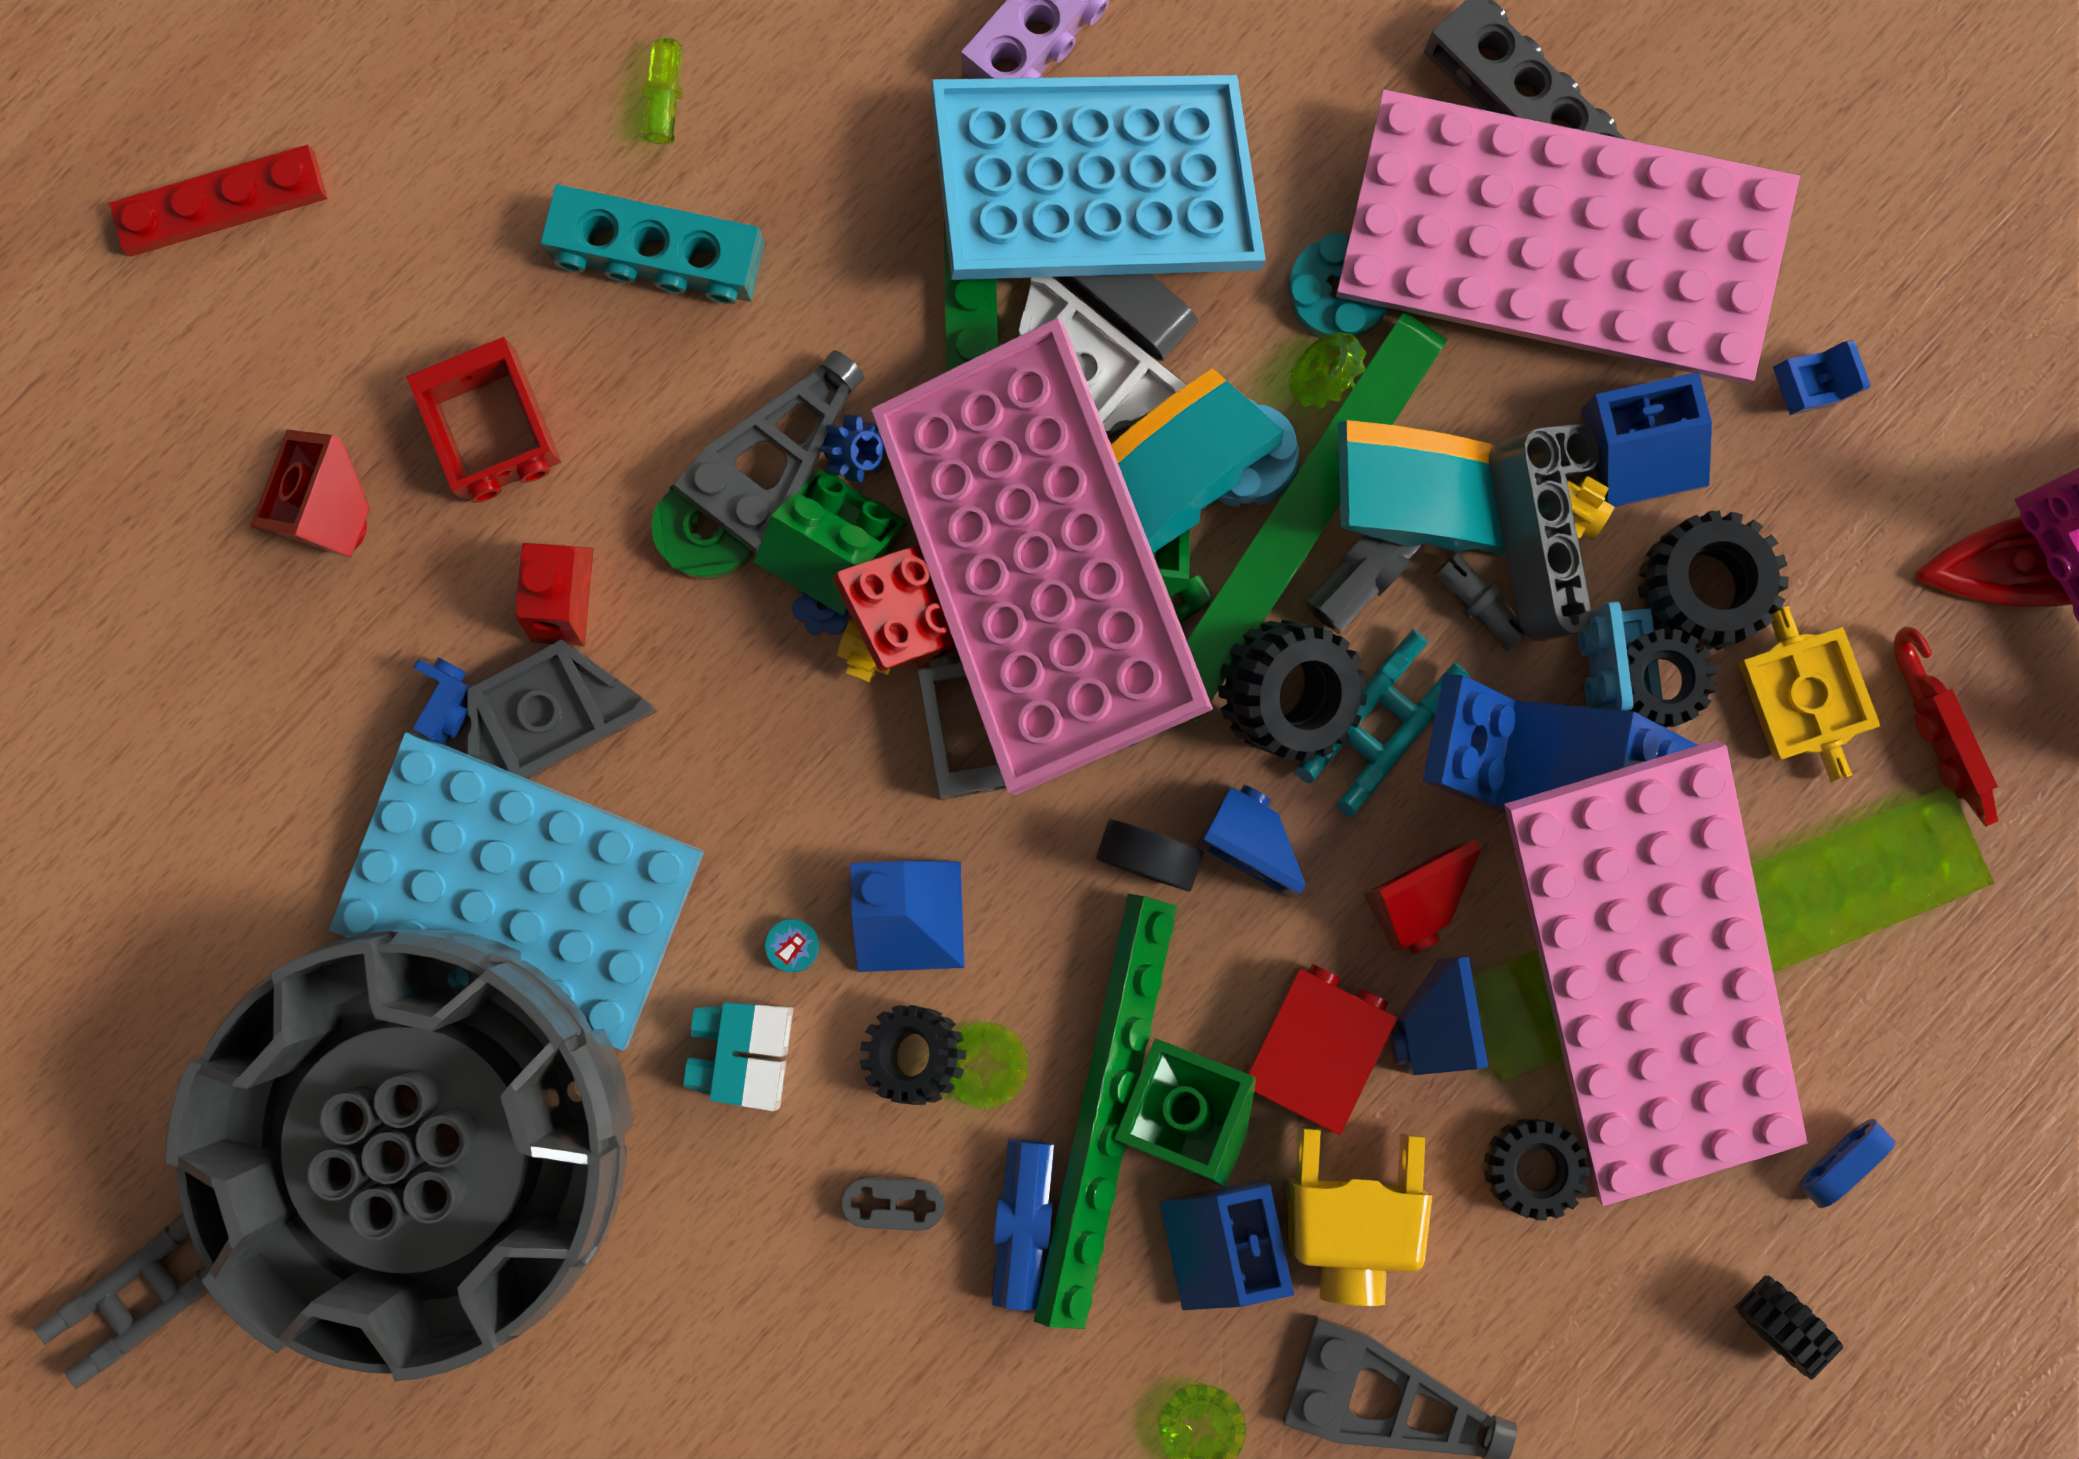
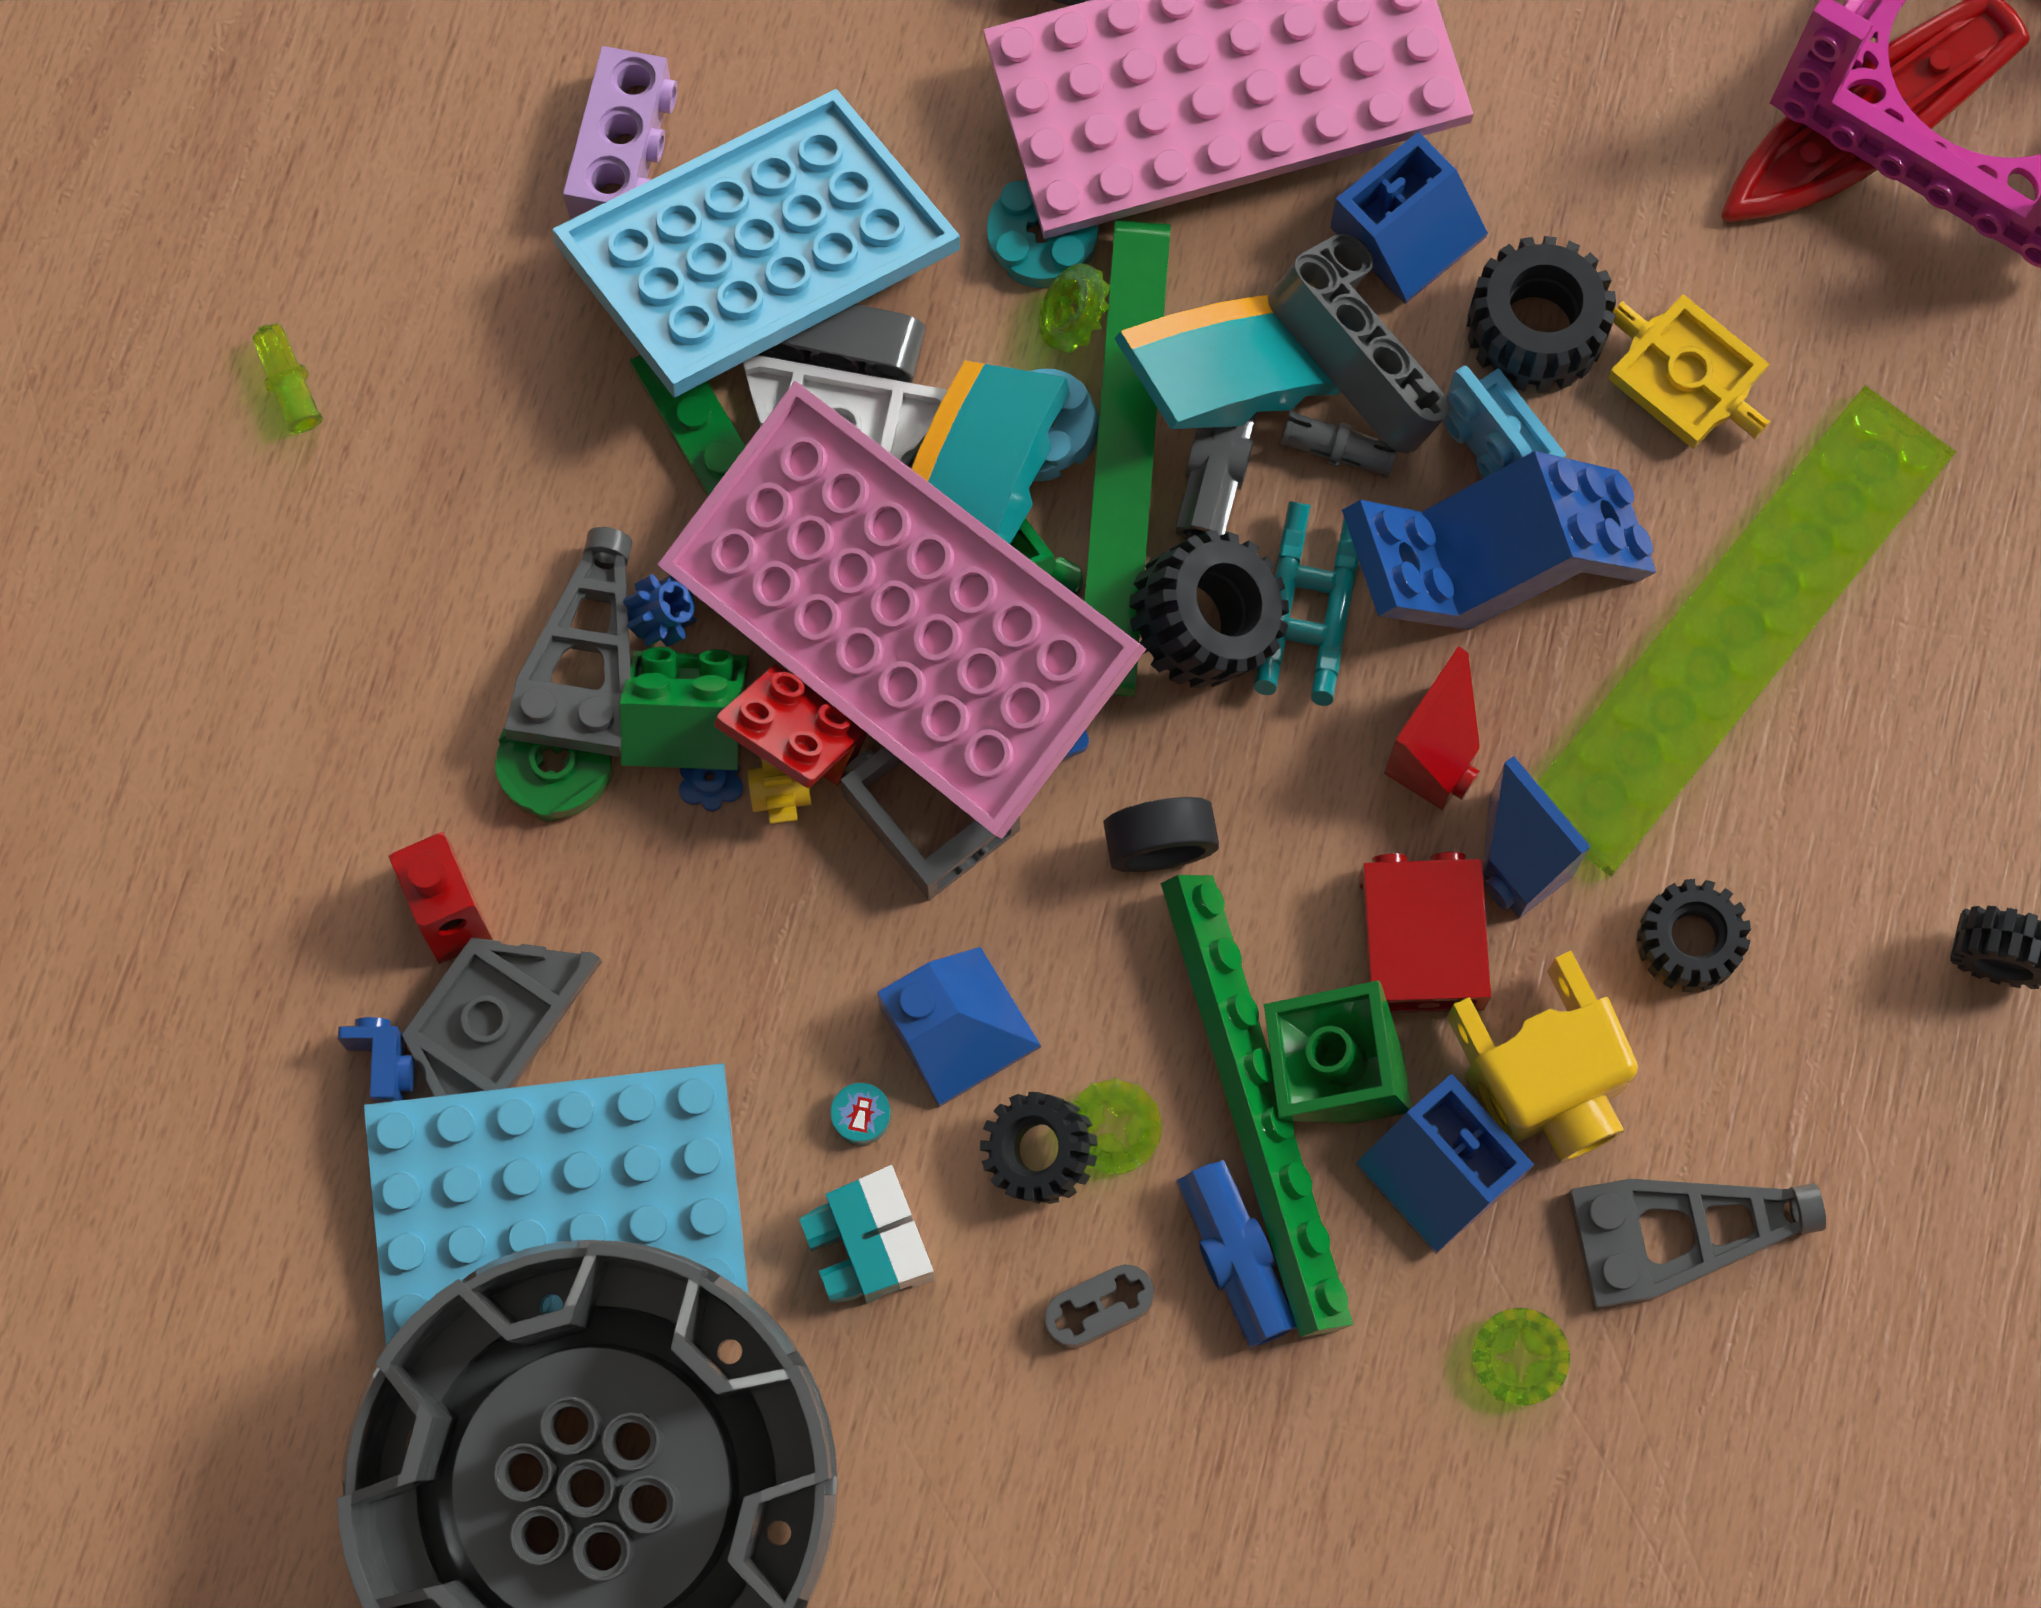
camera: 30 degrees left, 10 degrees down
(314, 495) = (143, 930): red slope -> none
(463, 375) = (236, 737): red window -> none
(580, 214) = (326, 511): teal brick -> none
(1253, 840) = (1255, 773): blue slope -> none
(1589, 507) = (1390, 305): yellow gear -> none
(1658, 971) = (1697, 683): bright pink plate -> none
(1693, 670) = (1563, 395): black tyre -> none
(1822, 378) = (1534, 86): blue bracket -> none
(1847, 1163) = (1974, 774): blue beam -> none
(1946, 728) = (1830, 336): red plate -> none

